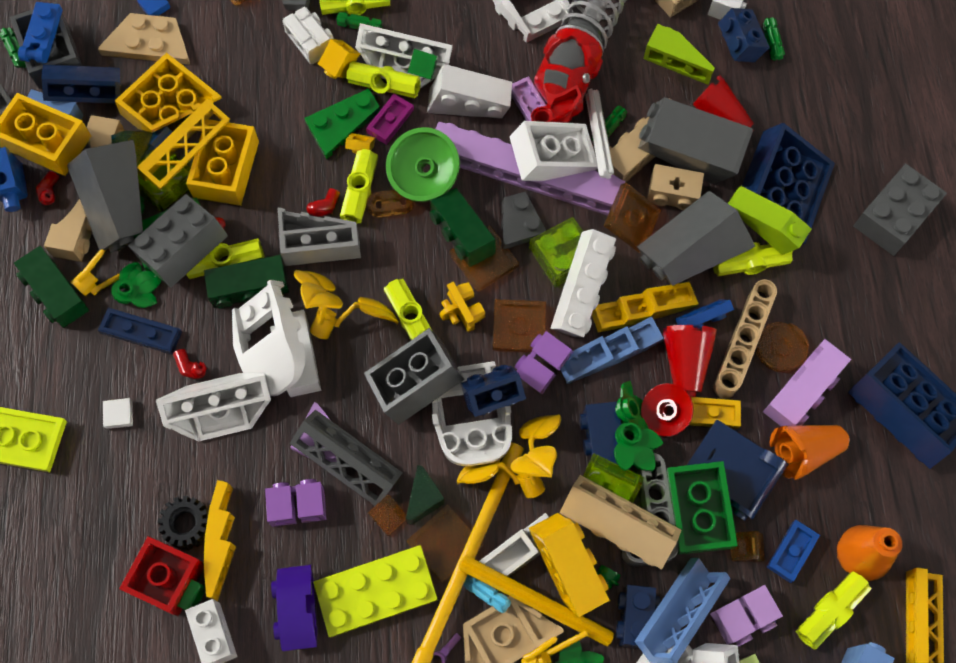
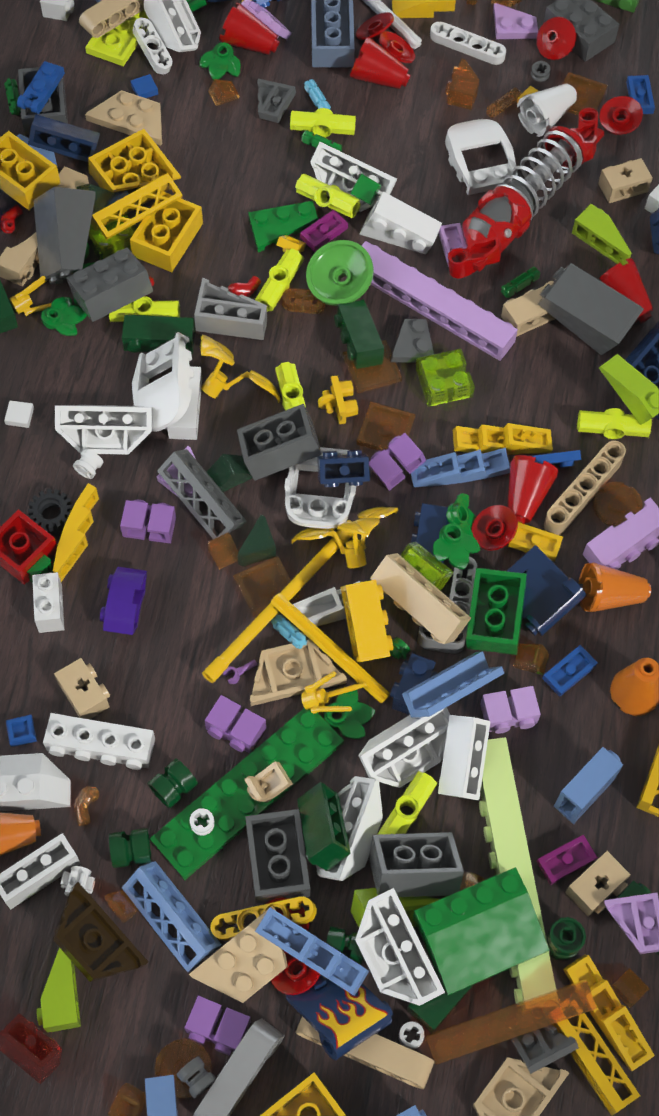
camera: 15 degrees right, 5 degrees down
(140, 331) = (56, 353): dark blue tile -> none
(188, 368) = (87, 392): red arm -> none
(210, 453) = (88, 463): none -> white wheel
(307, 33) = (273, 143): white brick -> none
(337, 58) = (291, 168): yellow brick -> none
(366, 421) = (229, 471): none -> clear green slope
(375, 591) = (195, 607): neon yellow plate -> none
(552, 150) = (458, 286): white slope -> none
(583, 283) = (451, 403): white brick -> none
(599, 134) = (507, 284): white axle -> none
(632, 216) = (515, 362): clear orange tile -> none
(666, 179) = (563, 347): tan brick -> none
(696, 240) = (564, 393): dark grey slope -> none
(833, 610) = (589, 726): neon yellow piece -> none

